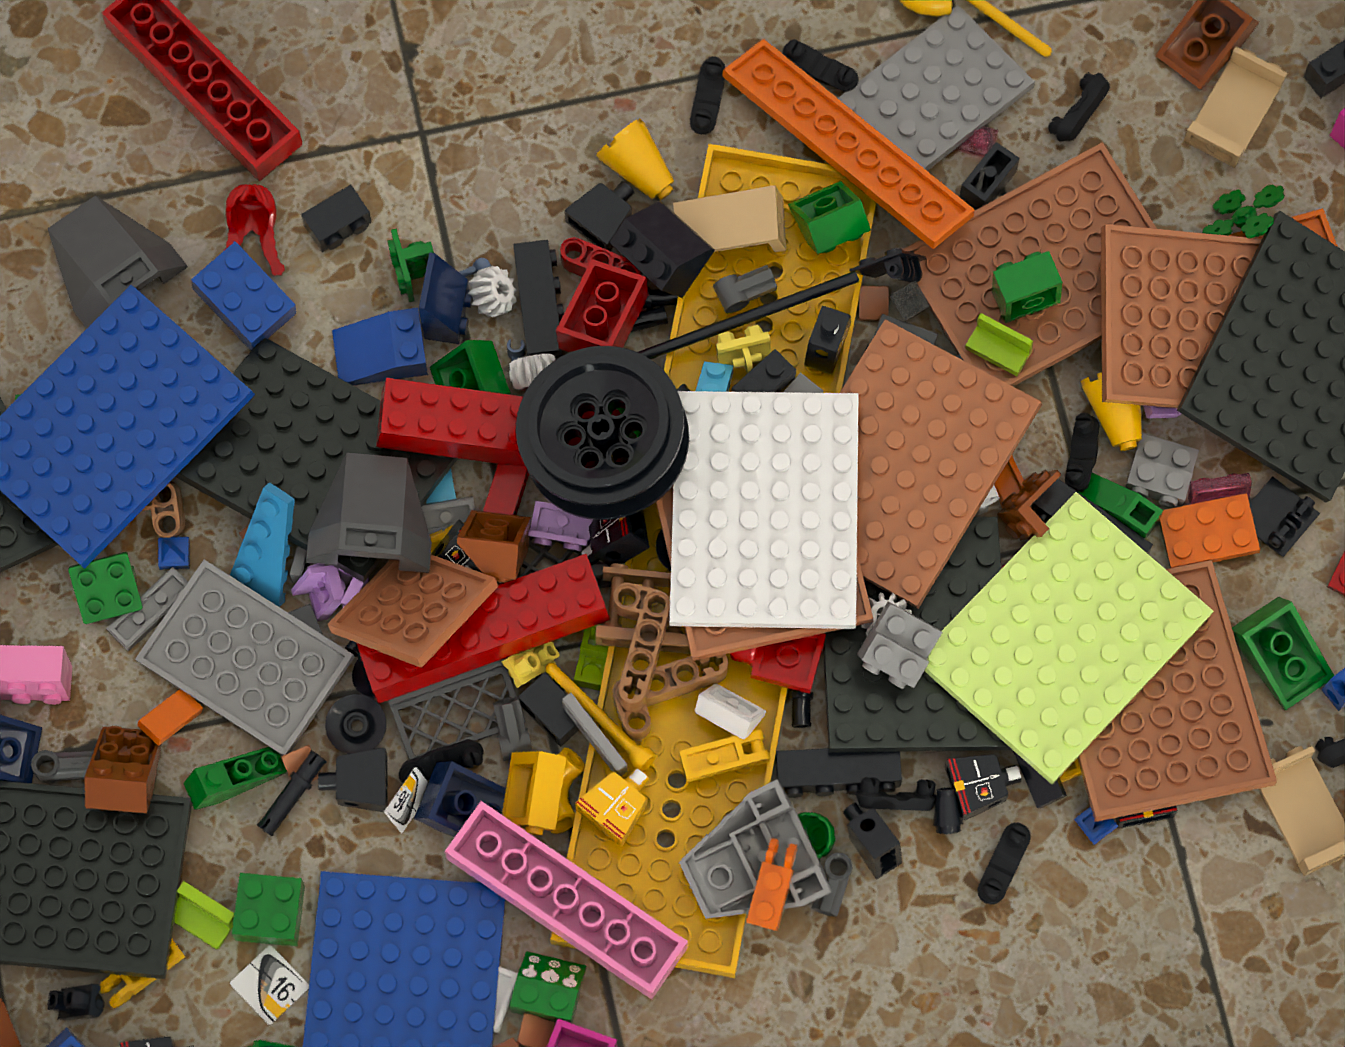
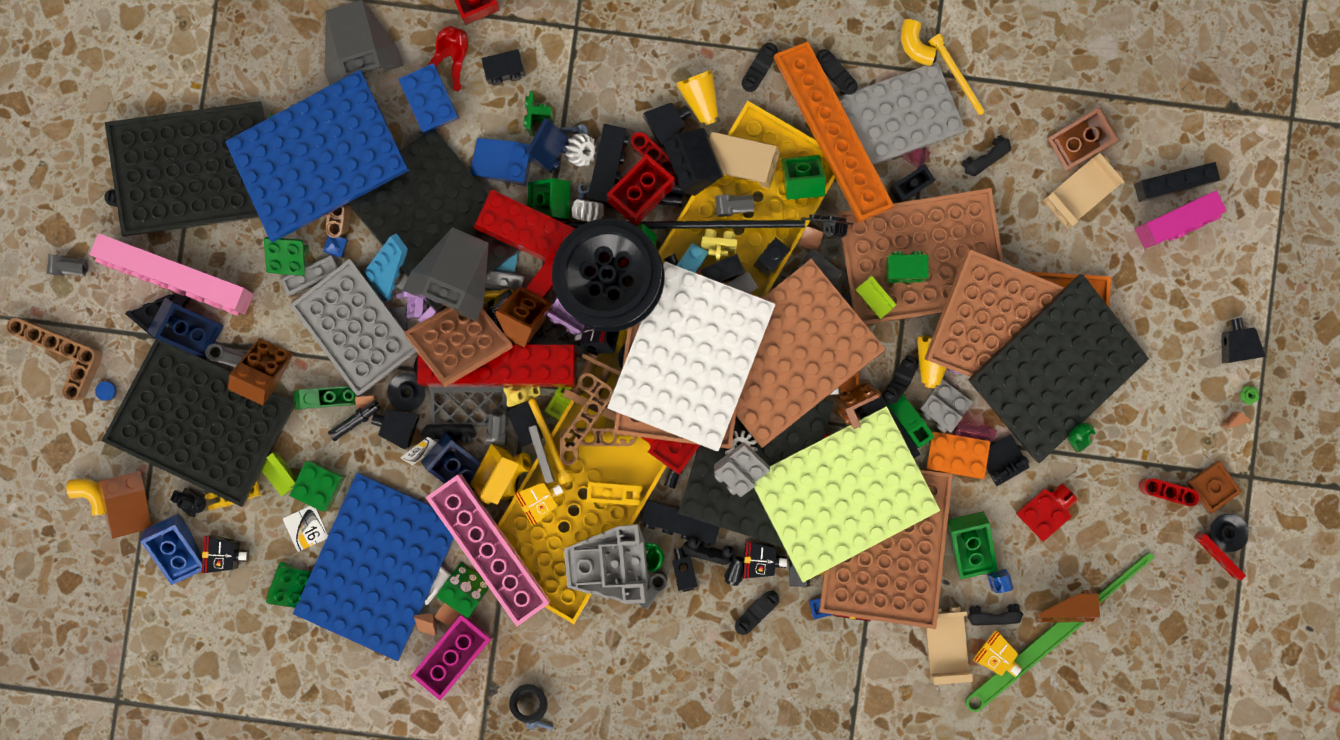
camera: 20 degrees right, 15 degrees up
(170, 716) = (298, 348): orange tile -> none
(729, 710) = (627, 467): white slope -> none
(772, 888) = (610, 588): orange hinge -> none
(1245, 217) = (1060, 266): green plant -> none

